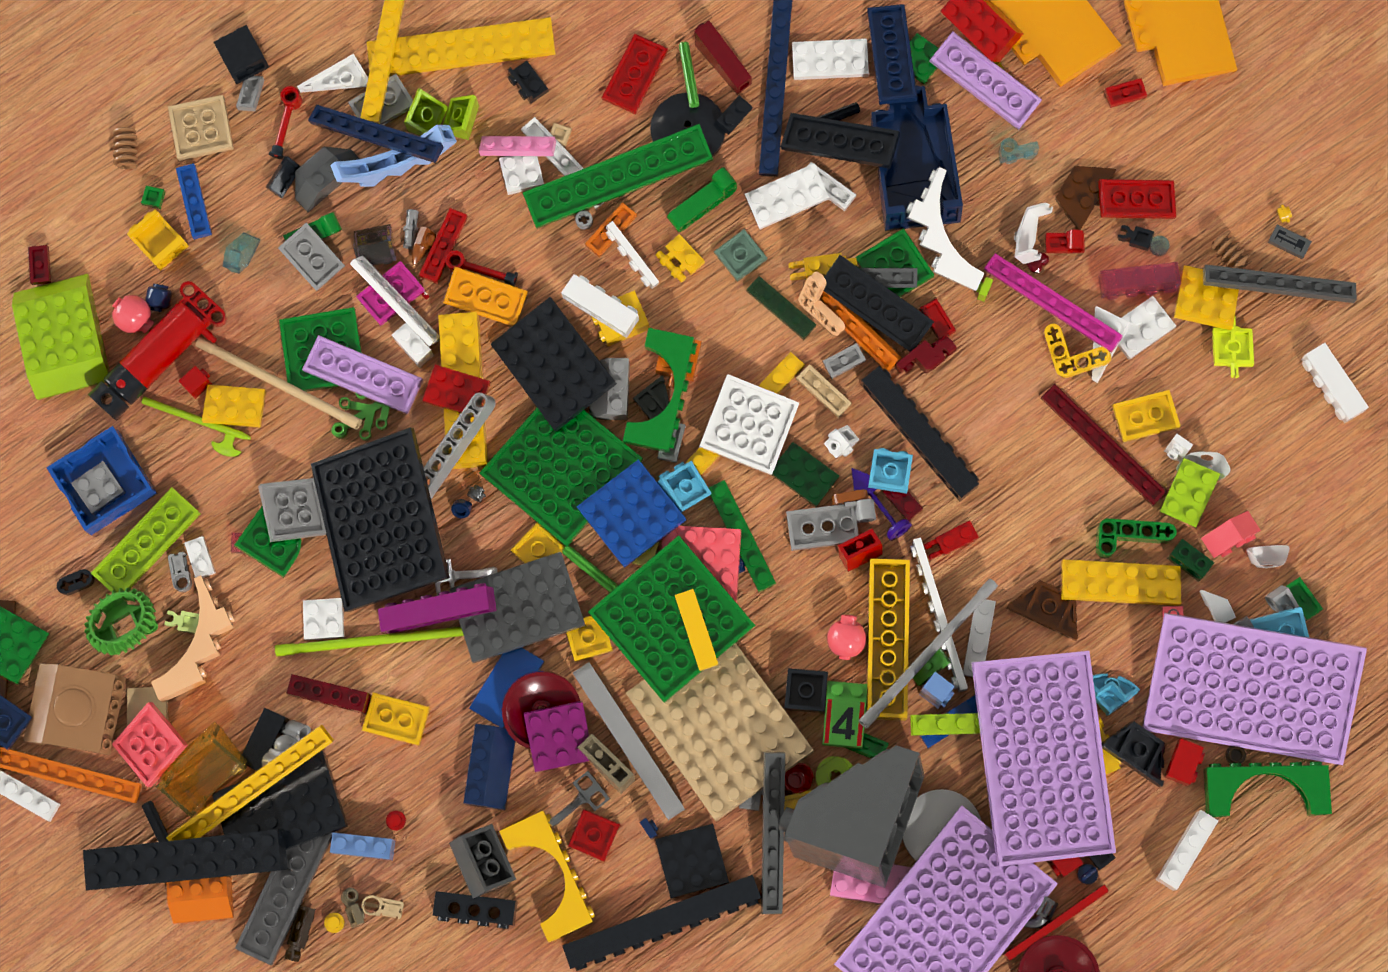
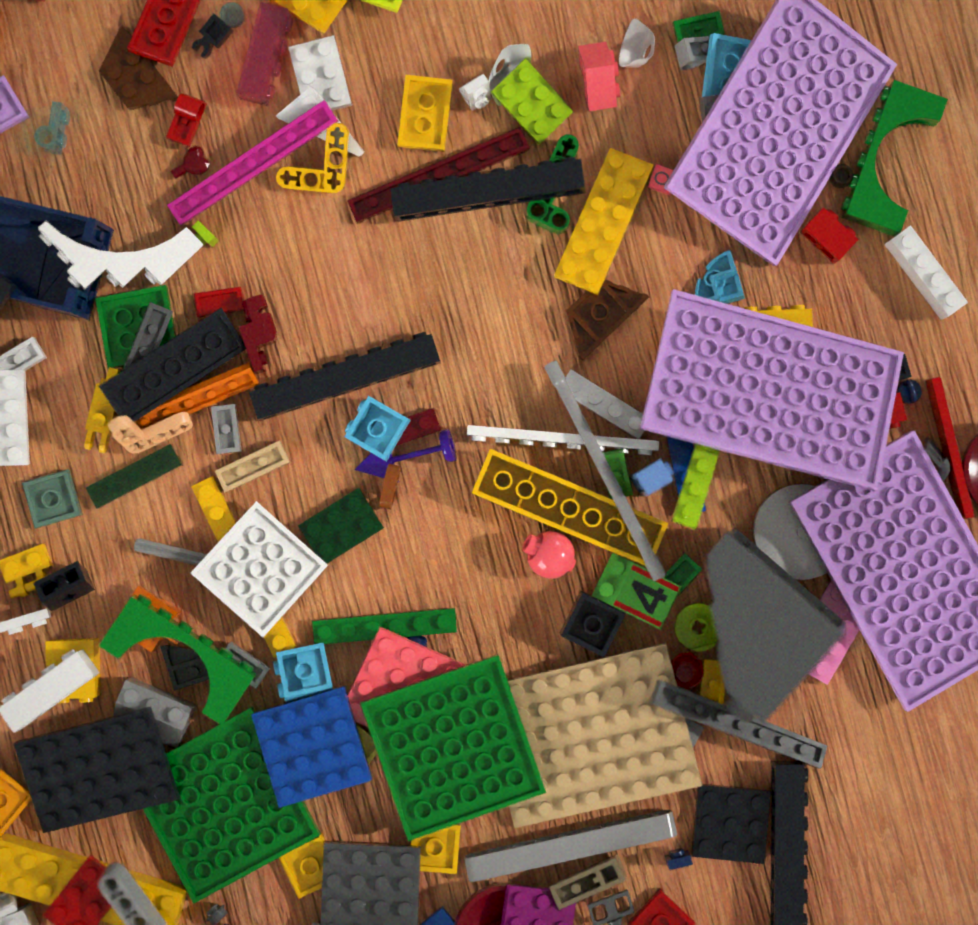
camera: 75 degrees left, 10 degrees up
(589, 568) = (356, 814): bright green axle -> none
(680, 288) = (64, 586): none -> black brick
(696, 630) = (478, 725): yellow tile -> none
(734, 352) = (168, 551): none -> light grey axle
(841, 441) = (321, 475): white brick -> none
(843, 518) = (407, 503): light grey hinge -> none
(860, 550) = (455, 499): red brick -> none
(952, 540) = (482, 388): red hinge -> none
(1026, 233) = (158, 159): white piece -> none
(1107, 484) = (488, 190): none -> black brick
(1138, 751) = (798, 280): black wing -> none
(1190, 560) = (609, 133): dark green brick -> none
(1218, 606) = (672, 124): white slope -> none

